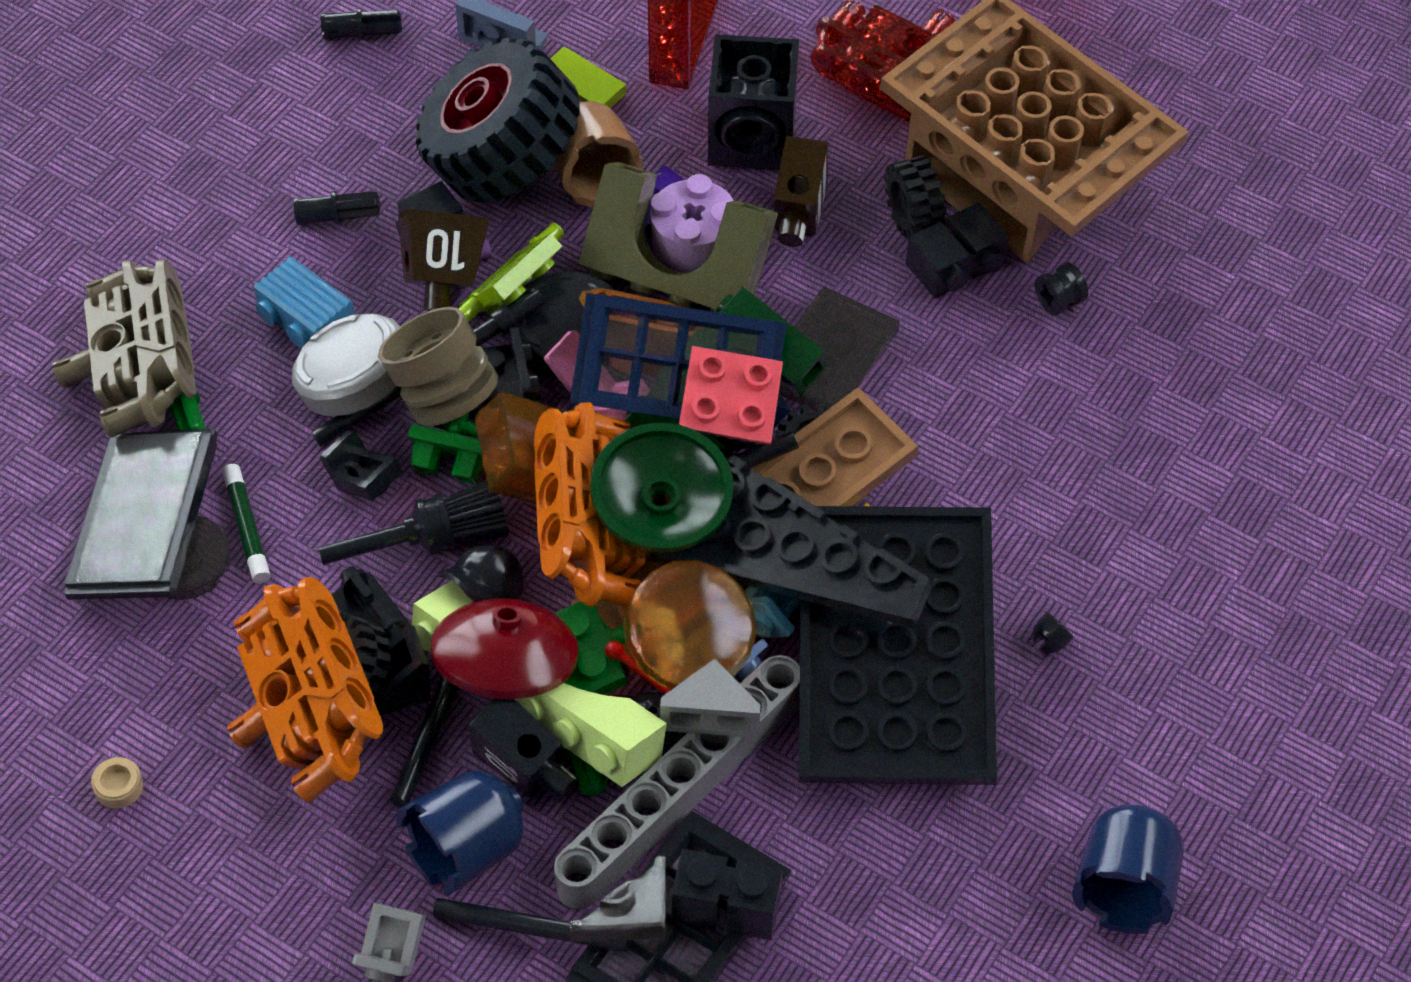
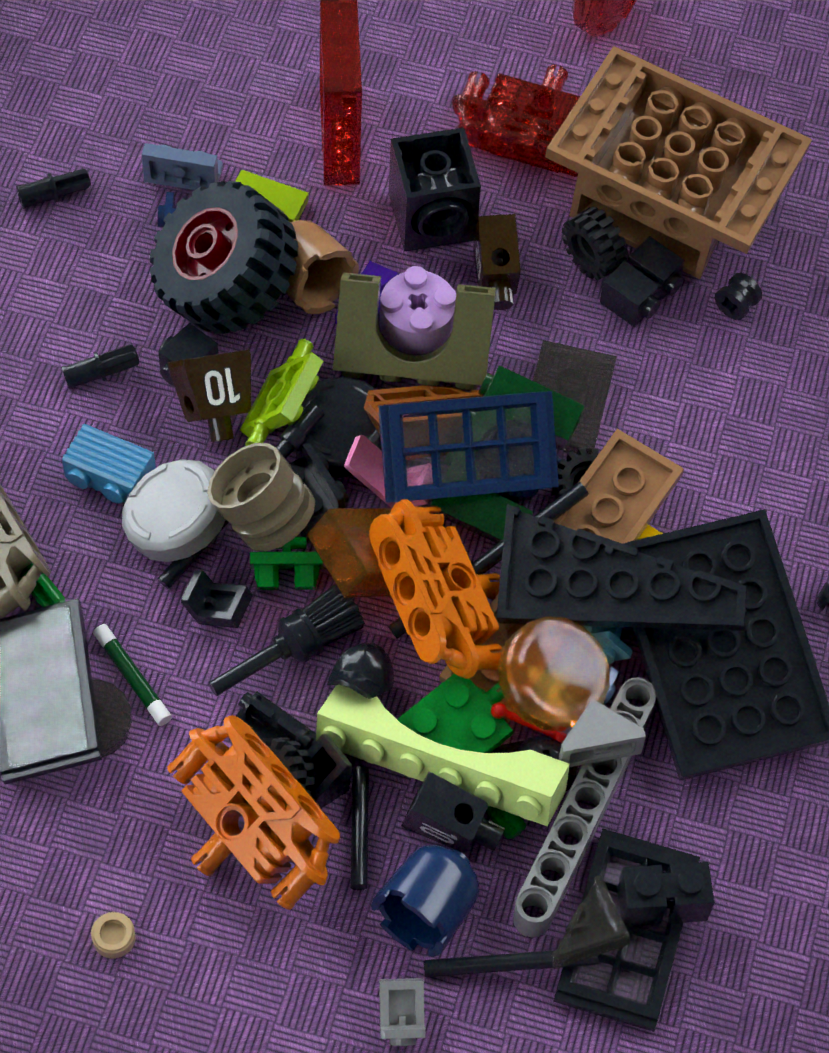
camera: 20 degrees left, 5 degrees up
(504, 649) = (413, 735): dark red dish -> none
(667, 465) = (501, 540): dark green dish -> none
(731, 395) = (524, 465): coral hinge -> none

